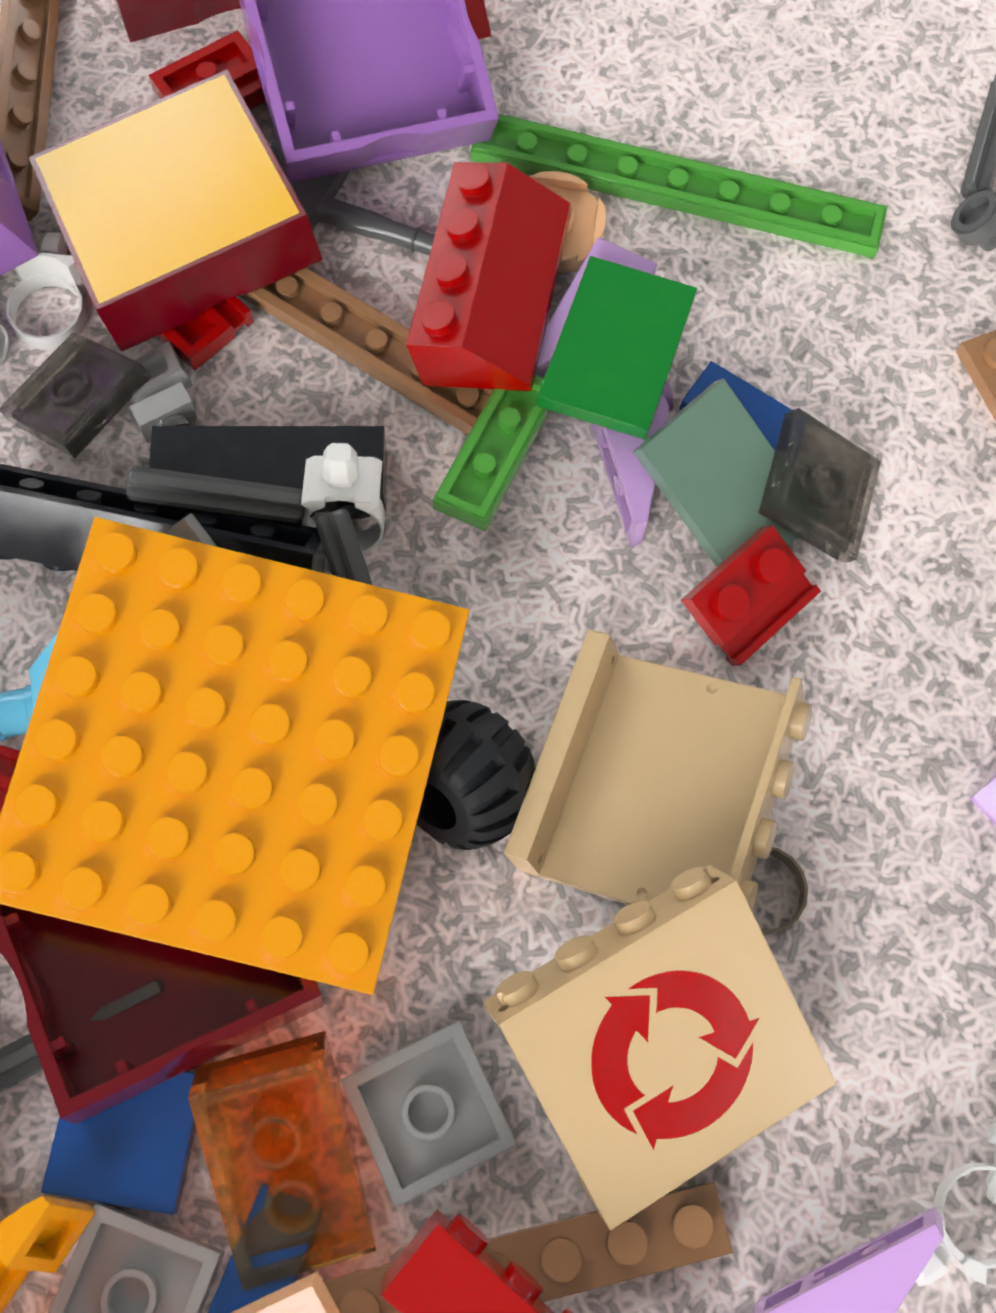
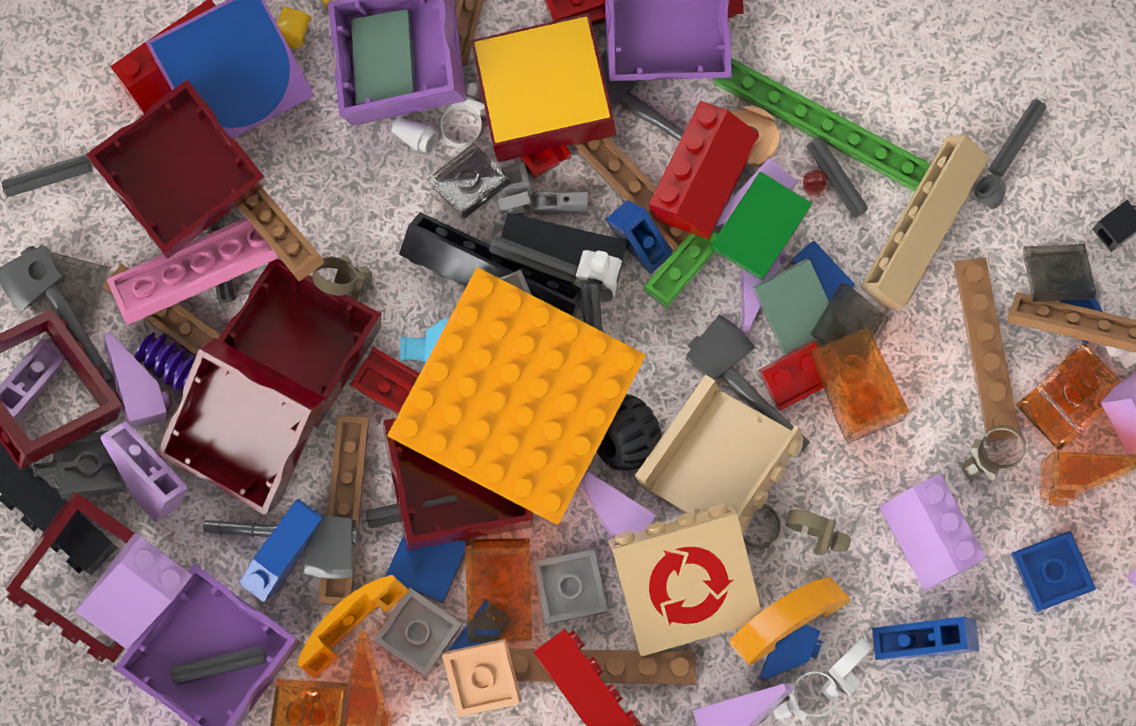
camera: 15 degrees right, 5 degrees up
(261, 395) = (566, 202): none -> light grey bar
(413, 418) = (642, 236): none -> blue slope
(482, 930) = (613, 508): none -> lavender slope
(596, 592) = (719, 352): none -> dark grey piece
(689, 269) = (814, 186): none -> clear red hinge
(719, 255) = (837, 177): none -> dark grey axle
(875, 584) = (859, 386): none -> clear orange slope
(879, 1070) = (787, 615): none -> light orange slope
(891, 865) = (819, 527): none -> dark tan piece
(892, 291) = (925, 222): none -> tan brick
(900, 1128) = (792, 652): none -> blue slope

